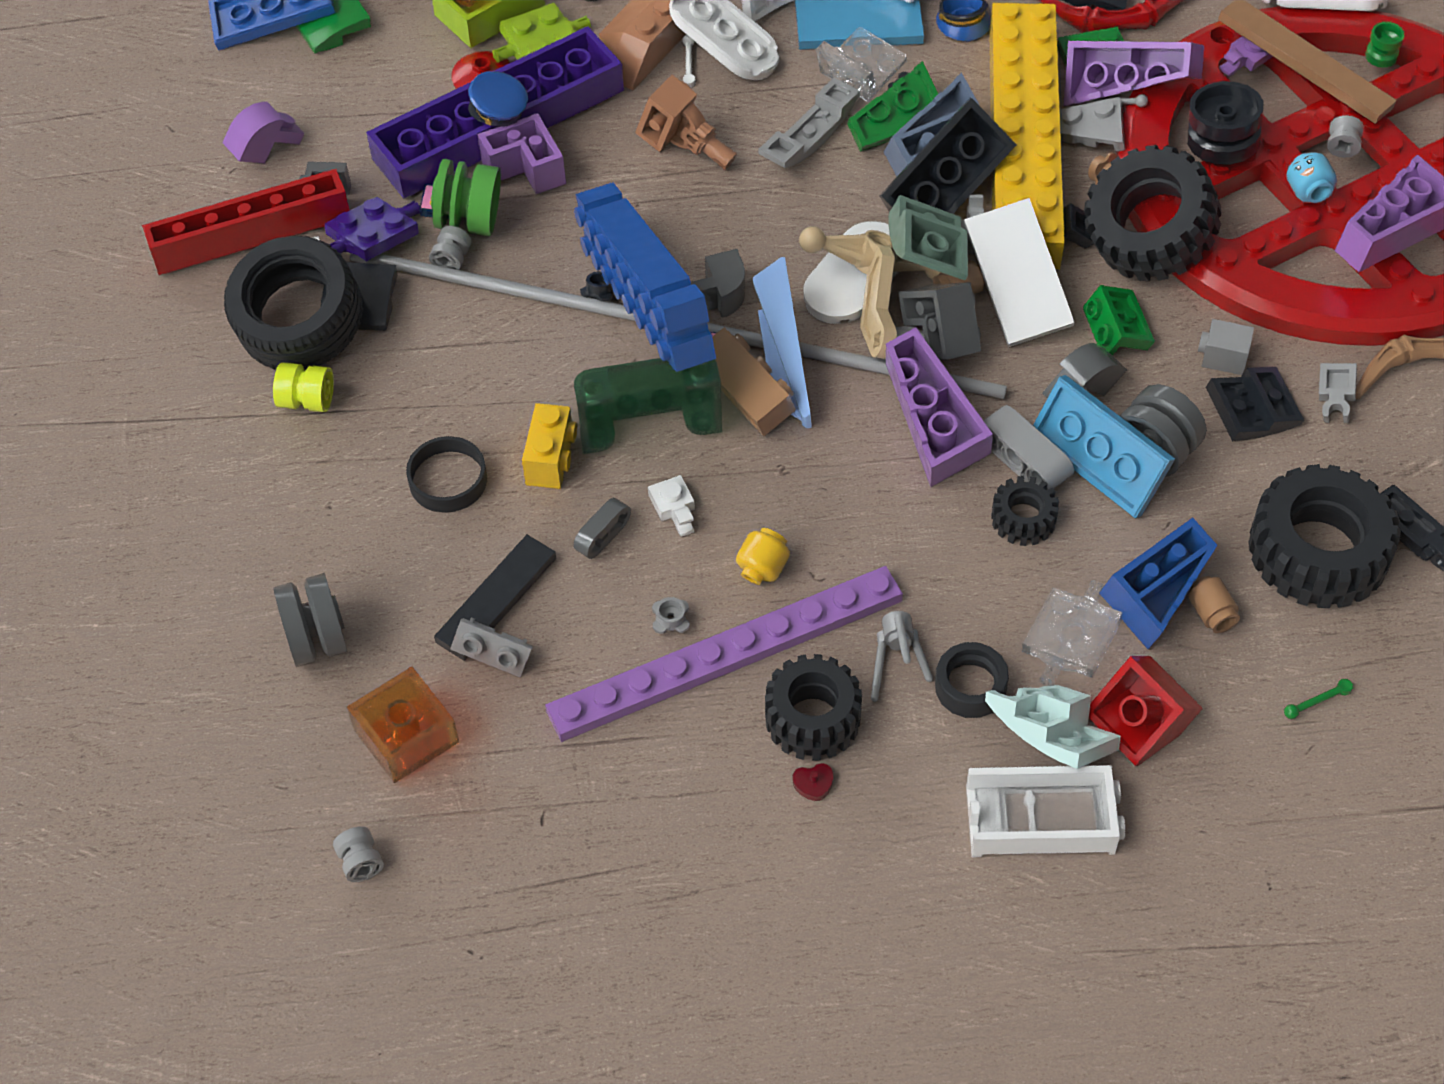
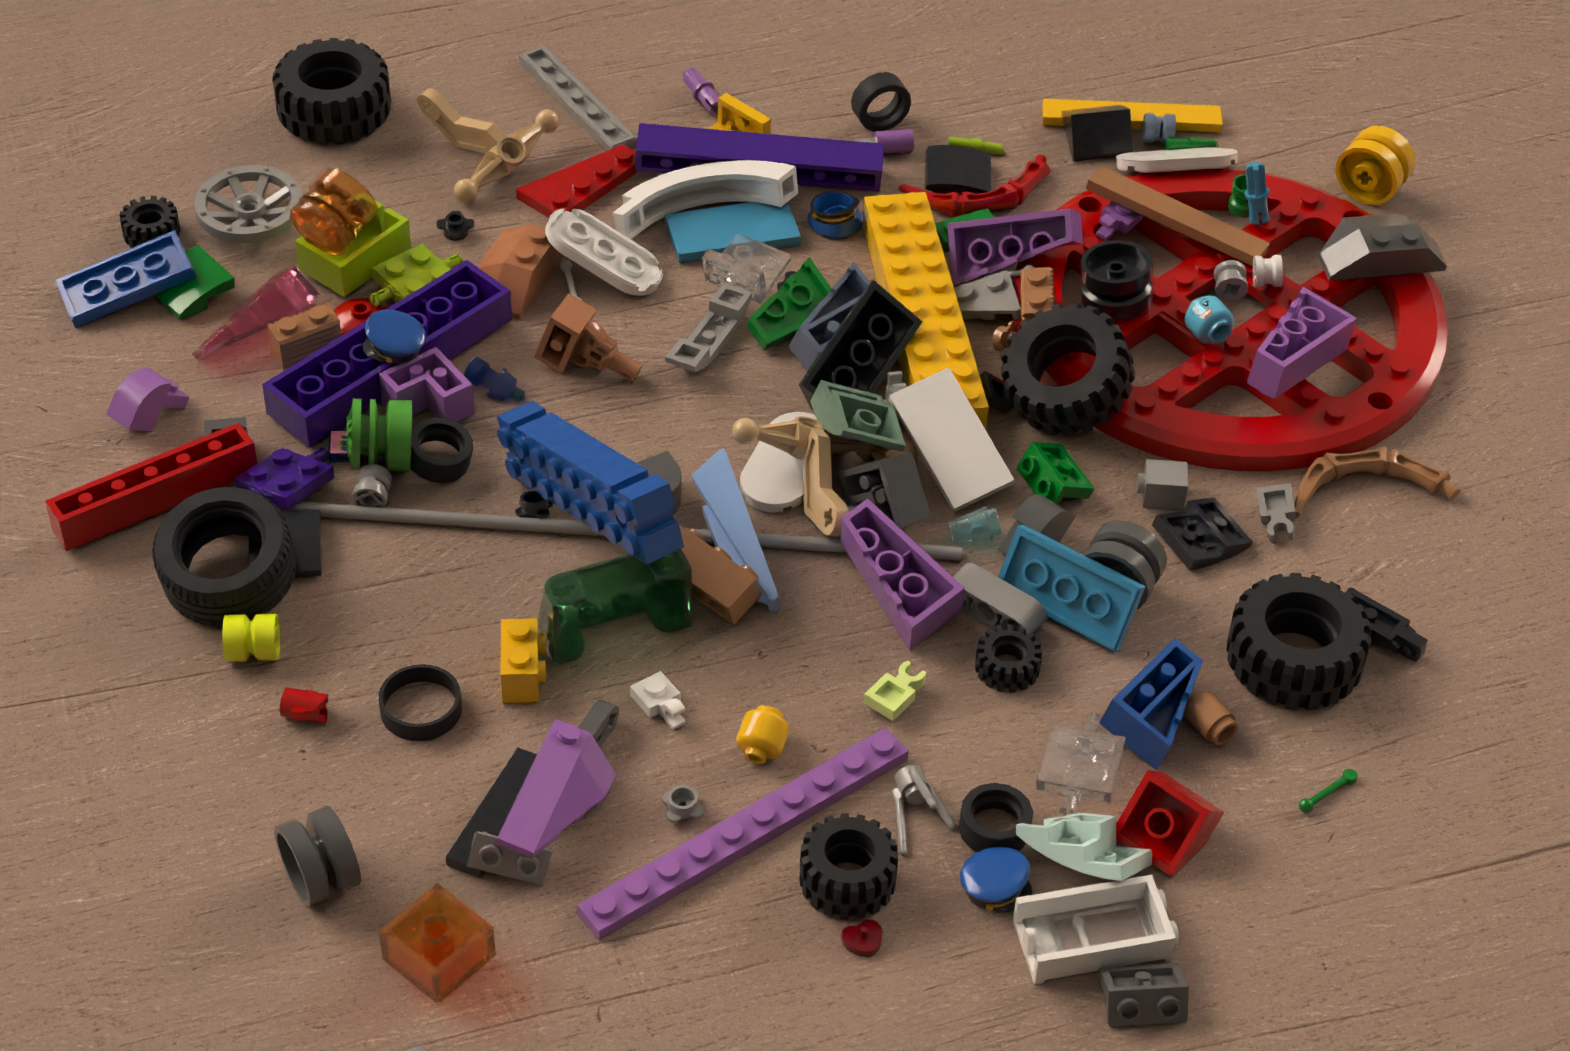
camera: 15 degrees left, 10 degrees down
(338, 462) = (304, 705): none -> red piece
(402, 48) = (279, 297): none -> clear pink wedge
(420, 83) = (303, 334): none -> medium nougat brick
(527, 198) = (445, 431): none -> black tyre
(555, 580) = (560, 787): none -> medium lavender wedge
(597, 157) = (500, 385): none -> clear blue piece
(902, 532) = (894, 694): none -> yellowish green plate
(957, 742) = (996, 878): none -> blue piece
(1025, 365) = (976, 526): none -> clear light blue cone
(1077, 887) = (1145, 994): none -> dark grey bracket
(1140, 126) = (1036, 291): none -> medium nougat brick
(1386, 131) = (1267, 271): none -> white wheel
(1394, 44) = (1257, 192): none -> dark azure axle

